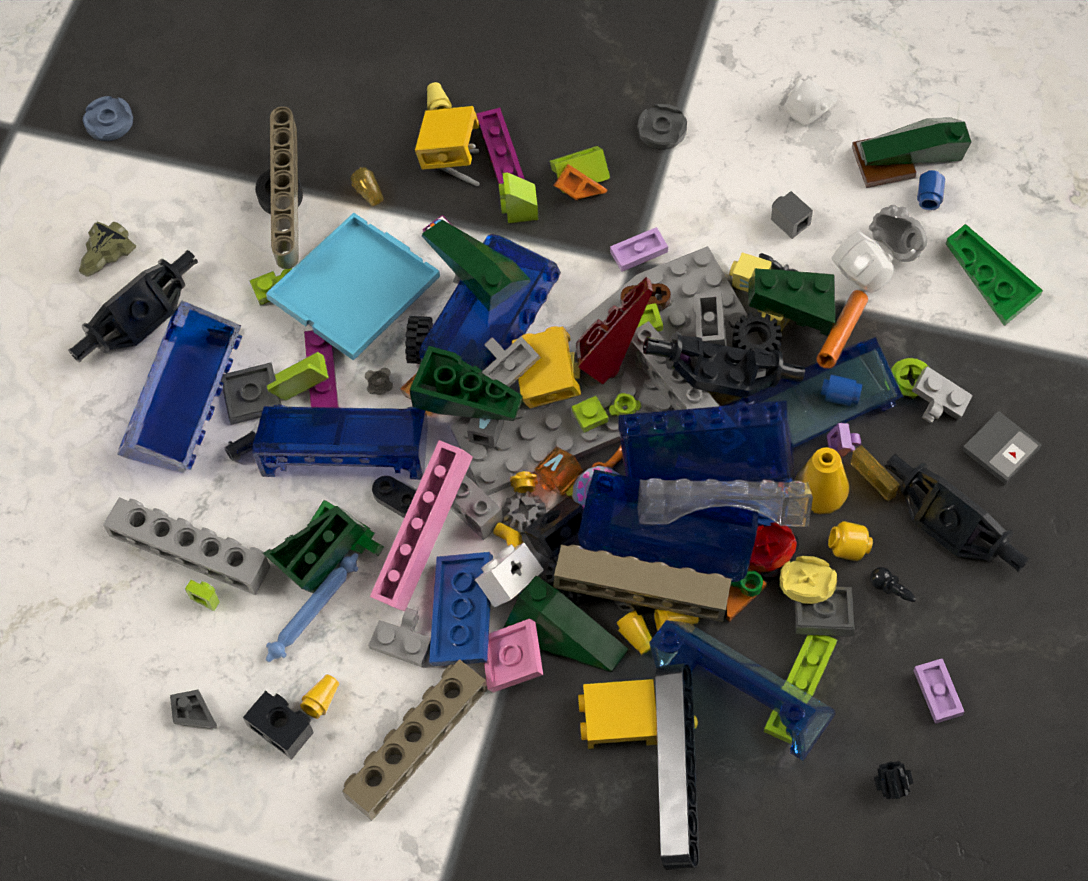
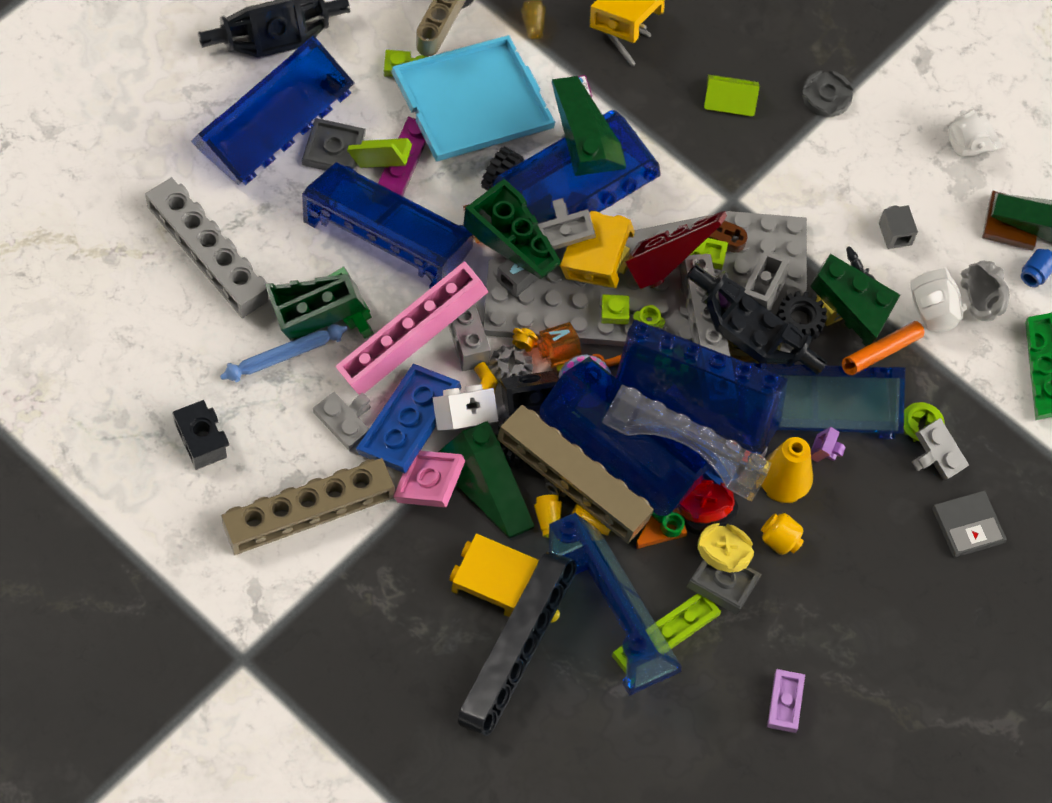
camera: 15 degrees right, 0 degrees up
(191, 710) = (134, 385): dark grey piece -> none
(203, 594) = (197, 294): lime plate -> none
(241, 446) = (296, 187): black pin -> none
(319, 697) = (246, 430): yellow cone -> none
(378, 387) = (448, 197): clear smoke plate -> none
(394, 496) = (407, 294): black plate -> none
(498, 144) = (669, 47): magenta plate -> none
(518, 199) = (659, 93): lime slope -> none
(577, 184) = (721, 107): orange tile -> none
(639, 249) = (743, 190): lavender plate -> none
(743, 269) = (823, 250): light yellow brick -> none
(841, 390) = (851, 401): blue brick -> none
(874, 473) = (839, 487): clear yellow tile -> none
(882, 579) = (794, 582): black bar -> none
(893, 780) = (700, 753): black gear -> none
(953, 516) = (886, 560): black plate -> none

